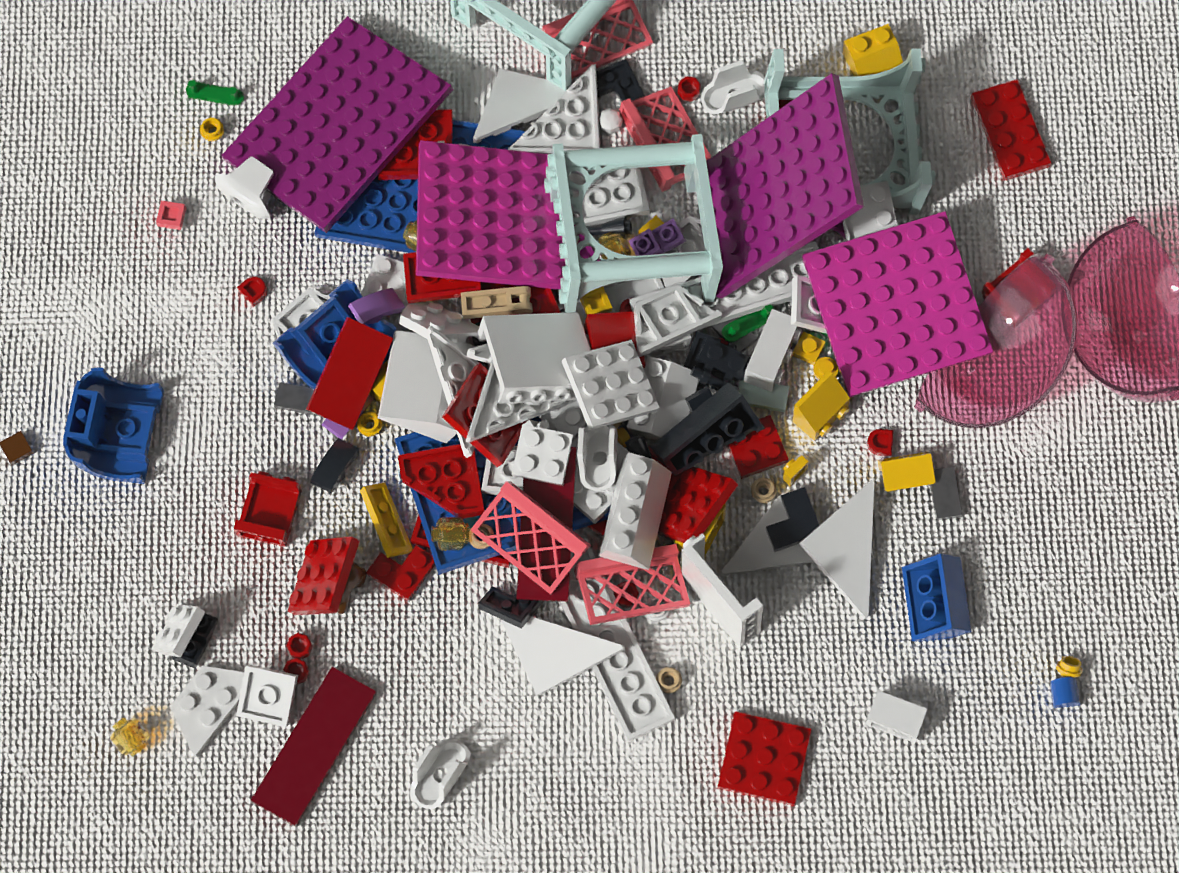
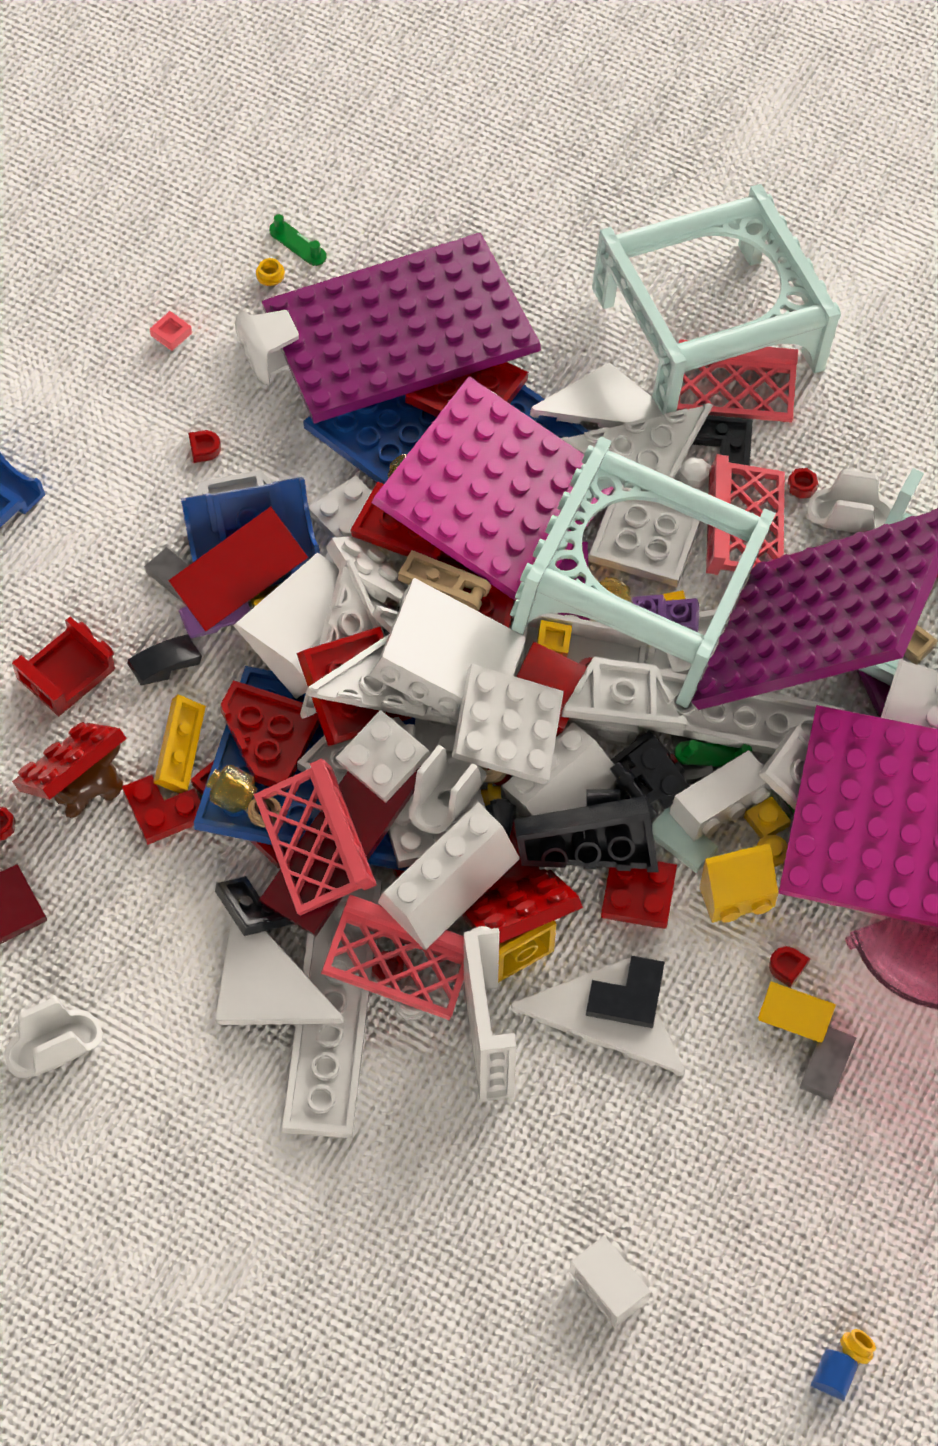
camera: 25 degrees right, 10 degrees down
(369, 417) = (229, 632): yellow plate -> none
(376, 305) = (310, 518): medium lavender slope -> none
(617, 226) = (635, 579): black cone -> none
(669, 672) = (374, 1080): tan plate -> none
(763, 483) = (617, 933): tan plate -> none
(764, 758) = (426, 1241): red plate -> none
(794, 469) = (667, 939): yellow plate -> none
(844, 548) = (667, 1054): white tile -> none
(936, 598) = (744, 1174): blue slope -> none

